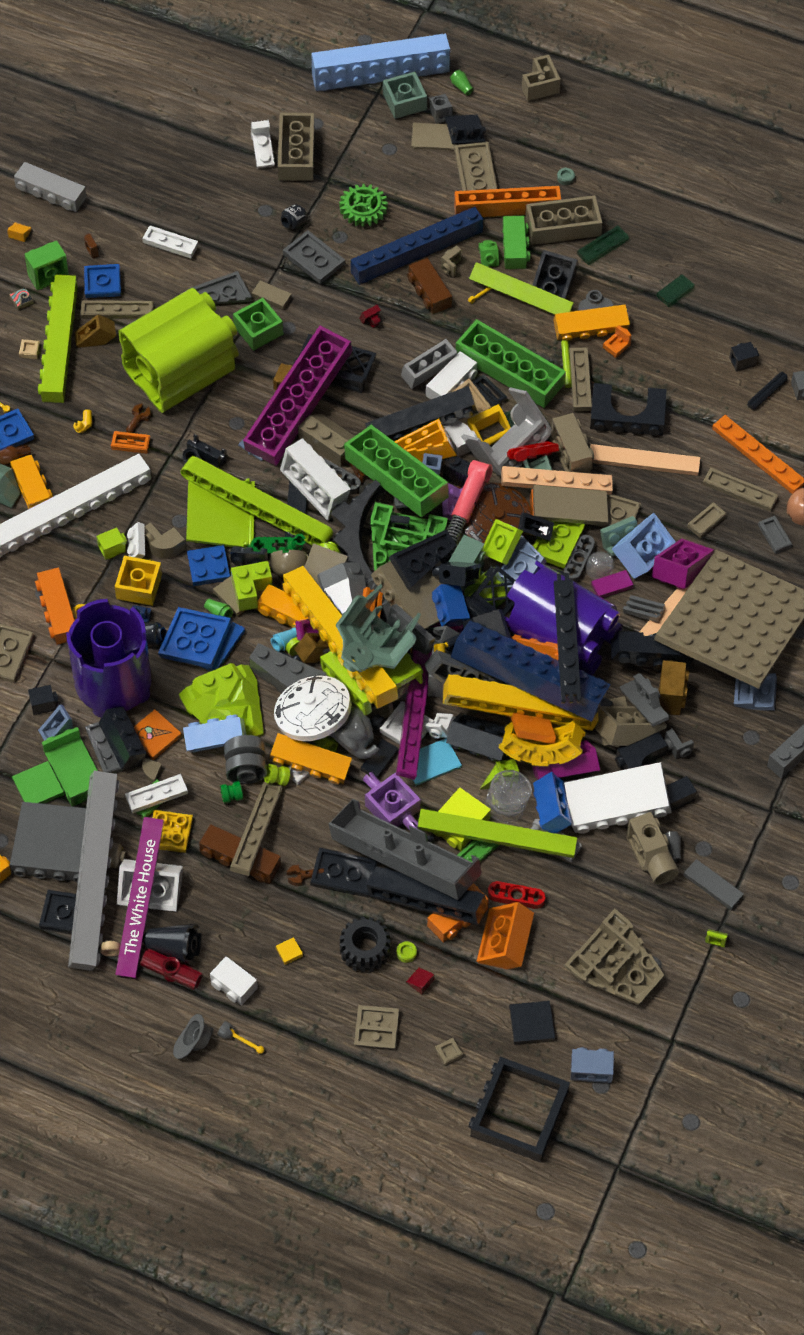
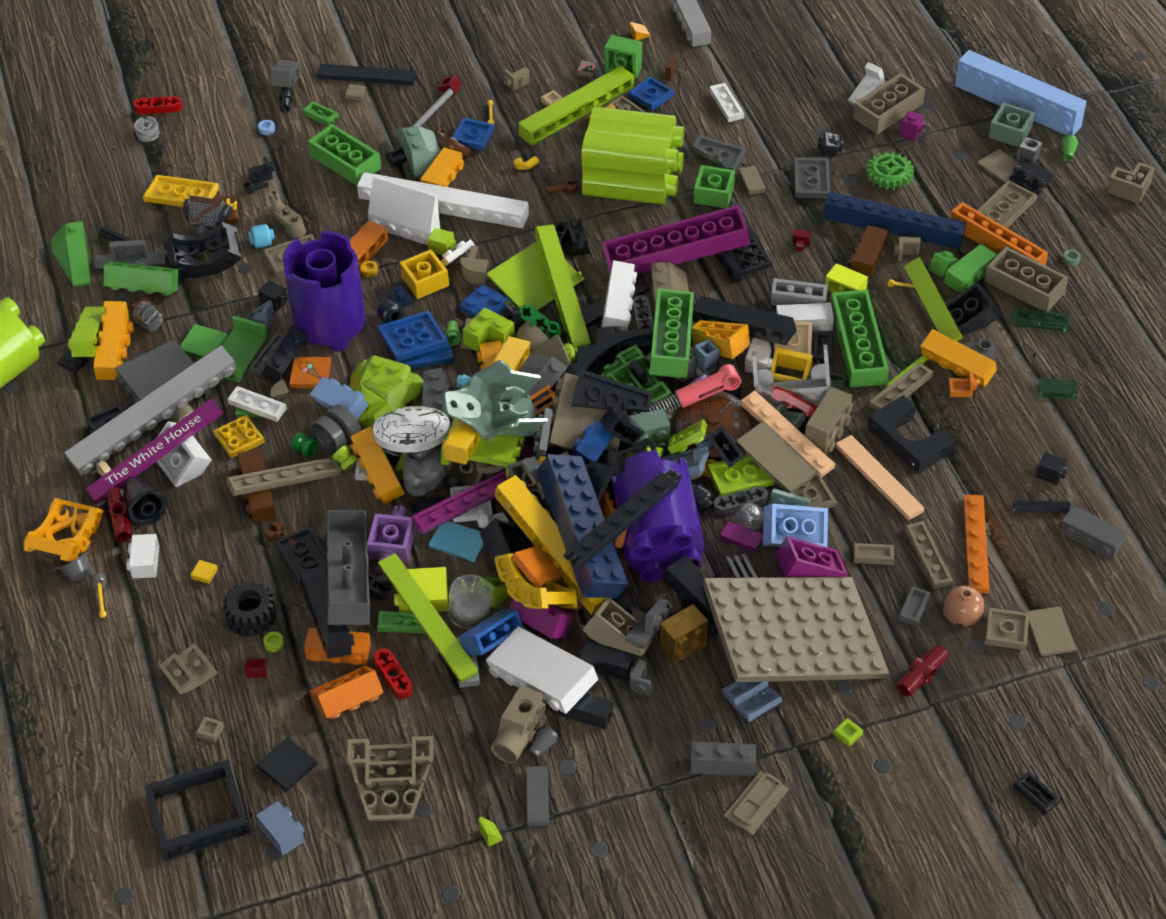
camera: 50 degrees right, 10 degrees down
(59, 542) = (403, 209): none -> white slope
(130, 445) = (536, 198): orange tile -> none
(154, 1040) = (68, 548): none -> light orange fence
(333, 152) = (912, 125): none -> magenta brick
(444, 325) = (844, 279): none -> neon yellow brick

